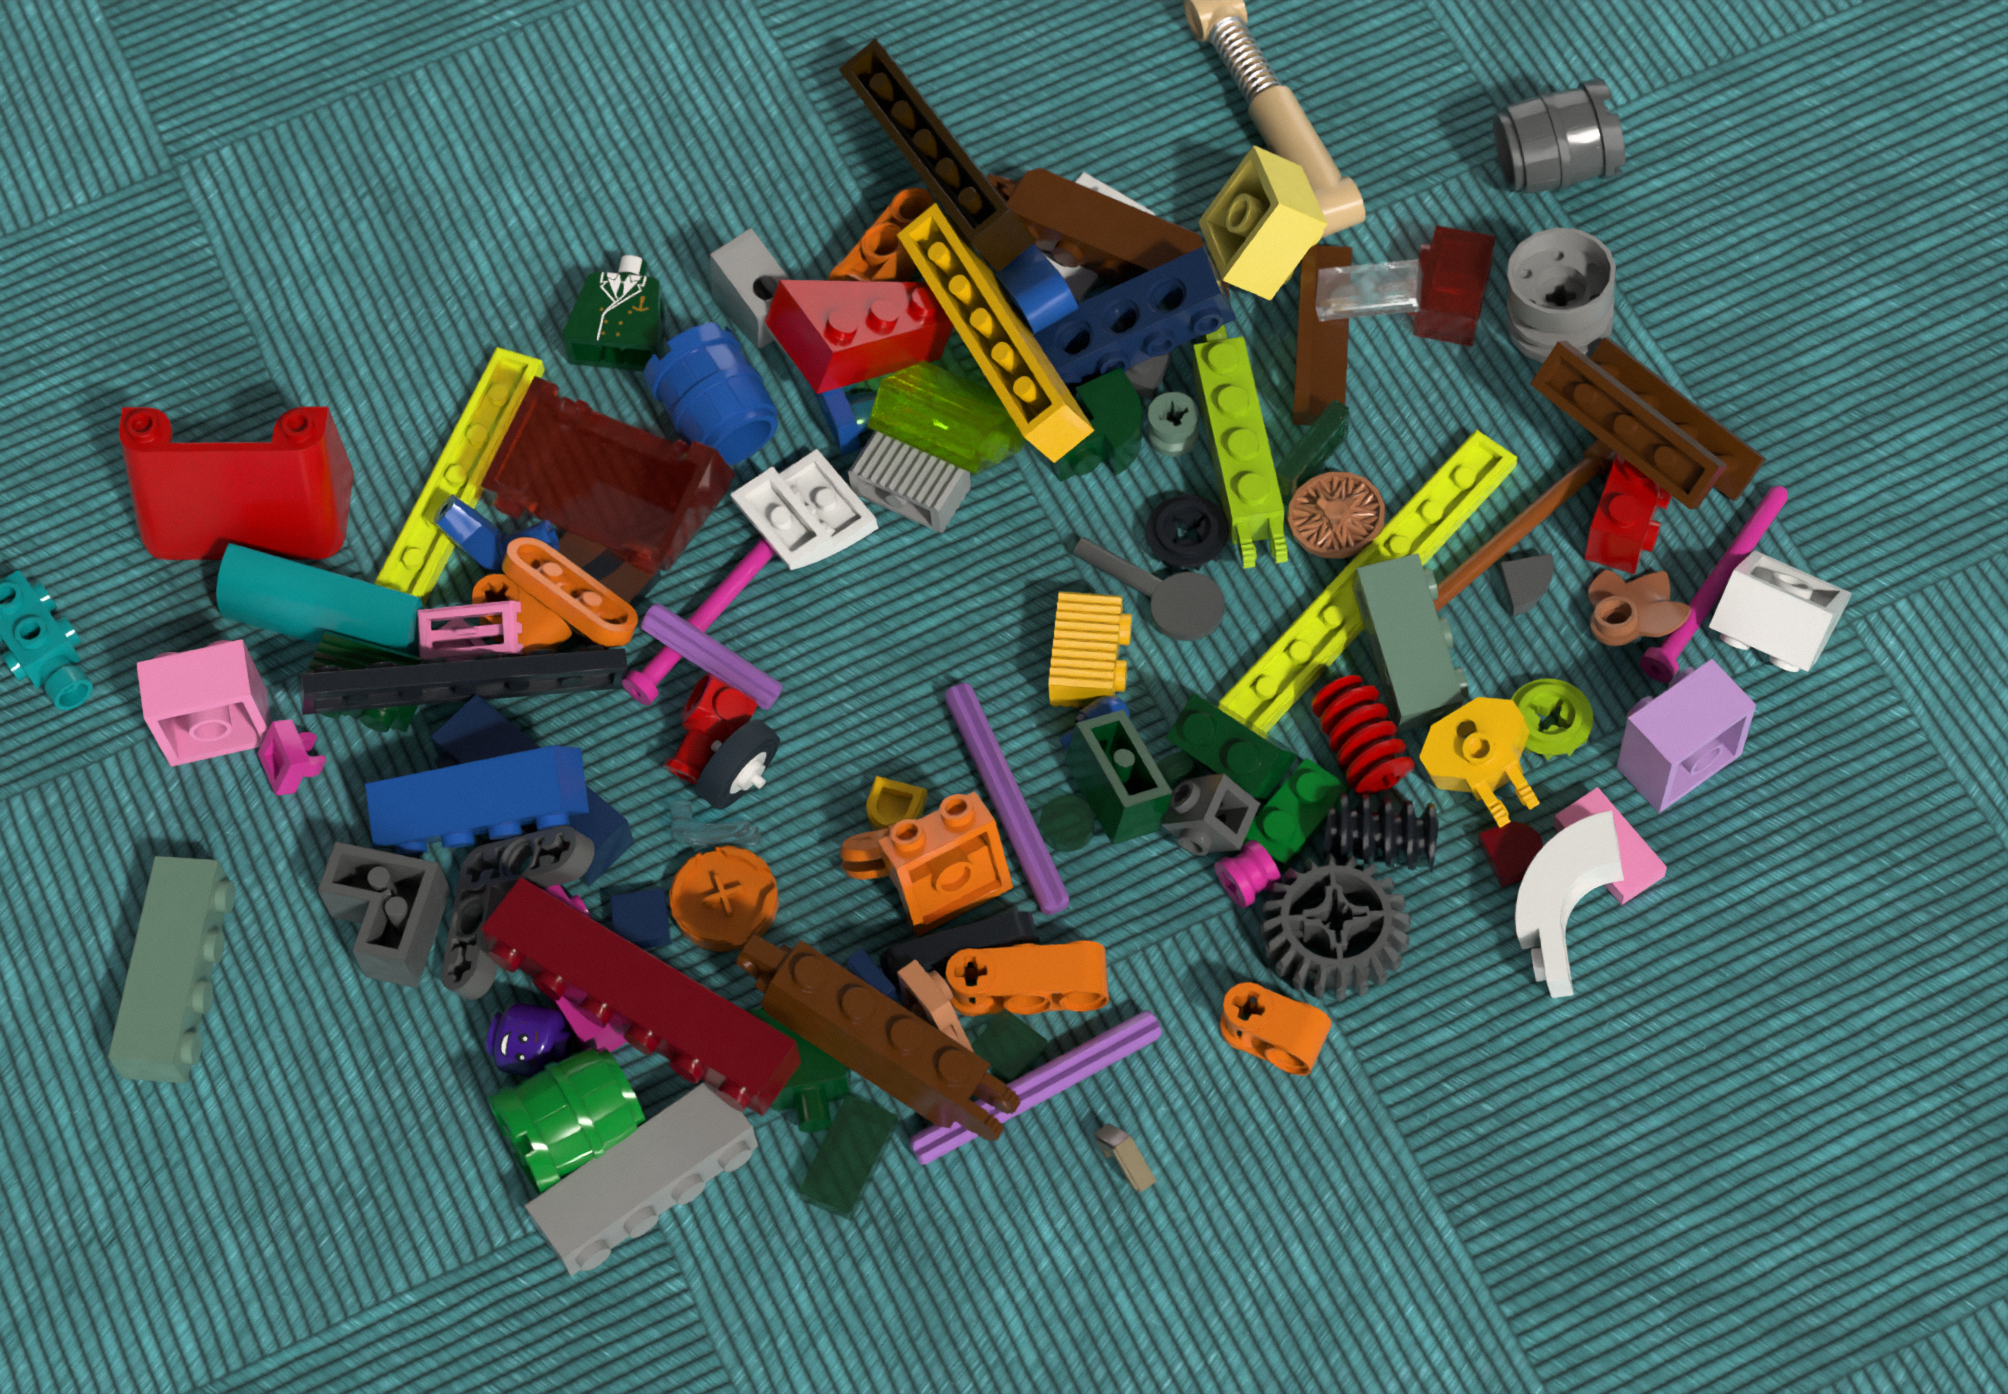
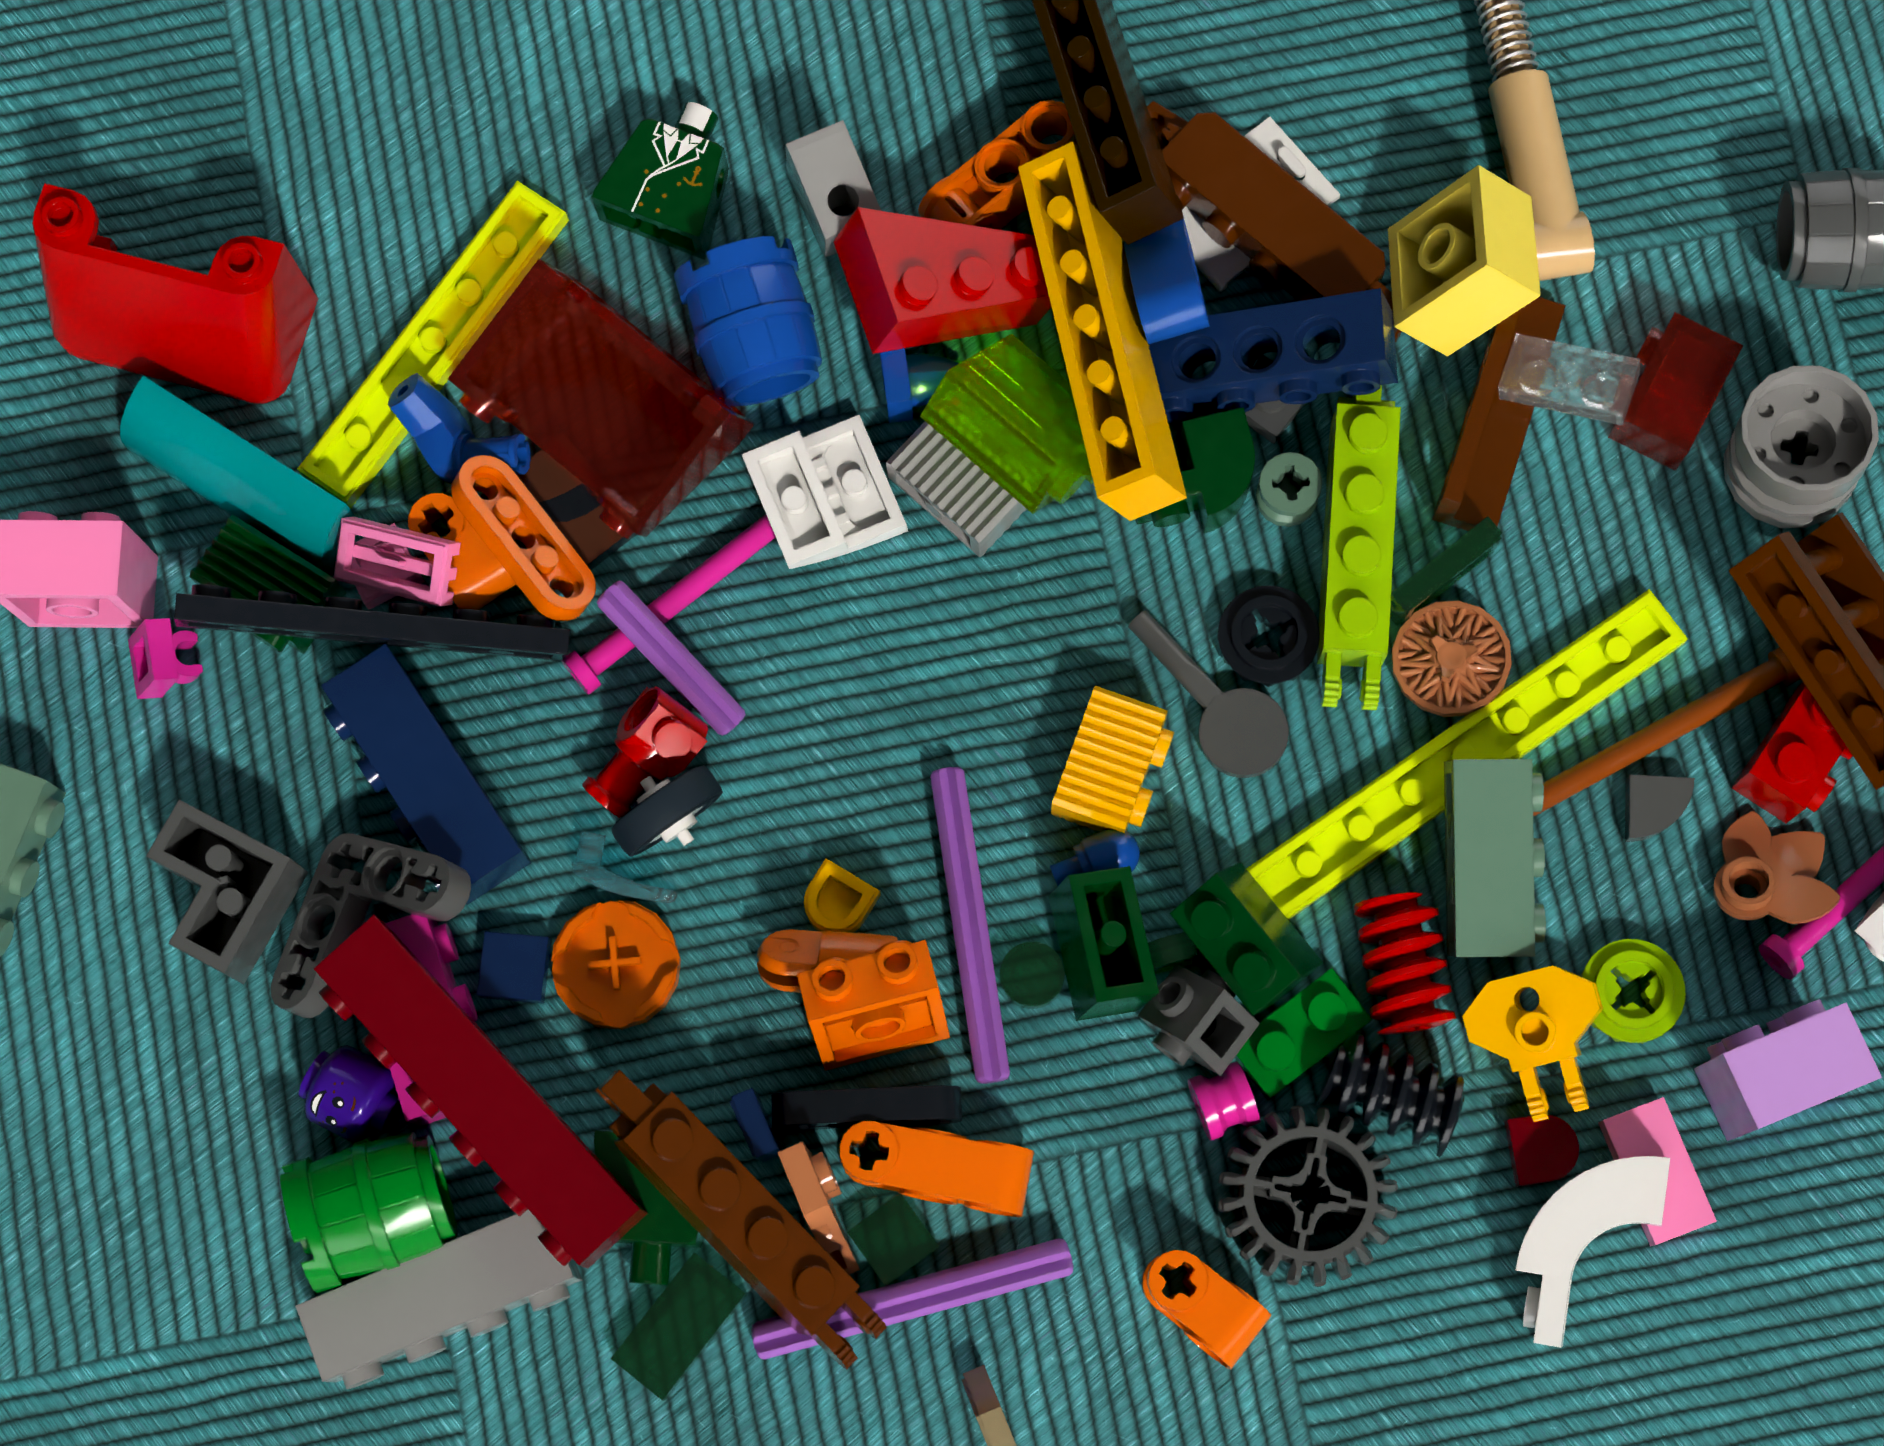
camera: 15 degrees right, 15 degrees up
(477, 799) = (354, 788): blue brick -> none

